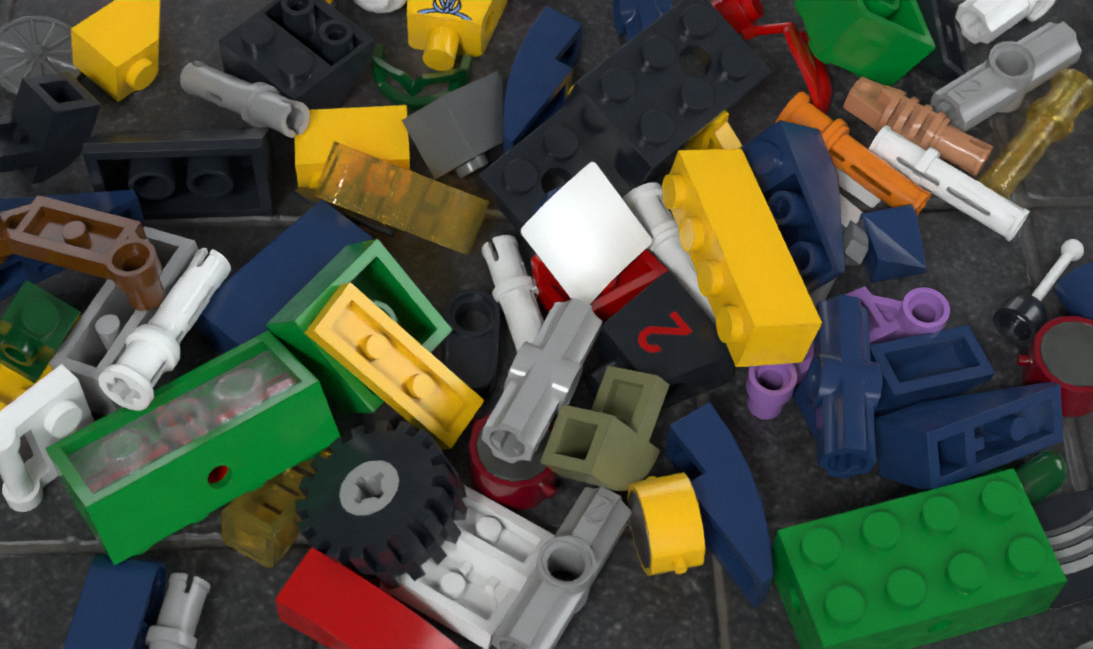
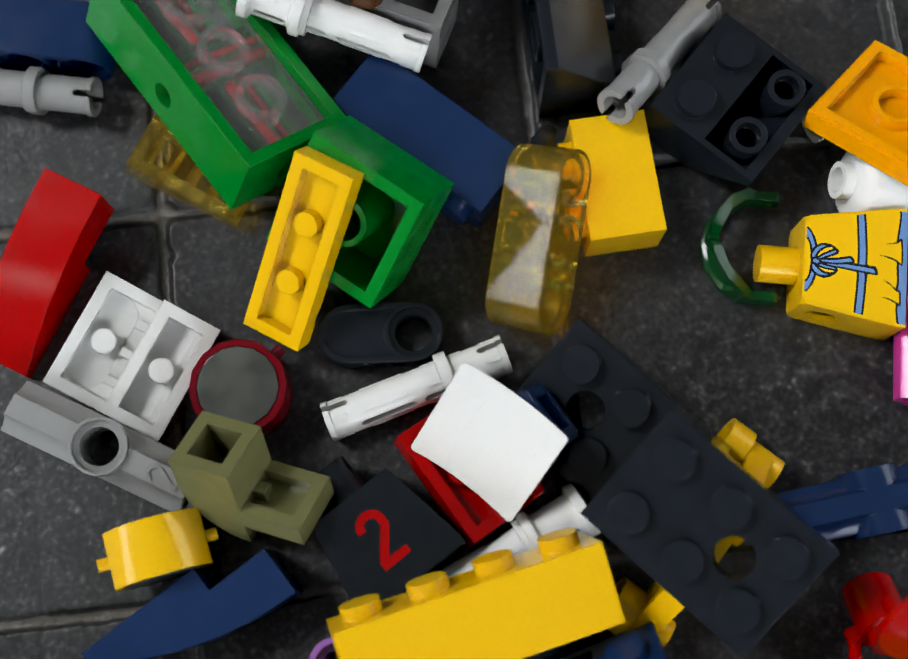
camera: 90 degrees right, 20 degrees up
(402, 526) = (155, 287): black wheel -> none
(460, 127) = (656, 295): dark grey slope -> none
(540, 75) = (737, 376): dark blue slope -> none
(541, 381) = (302, 406): light grey piece -> none

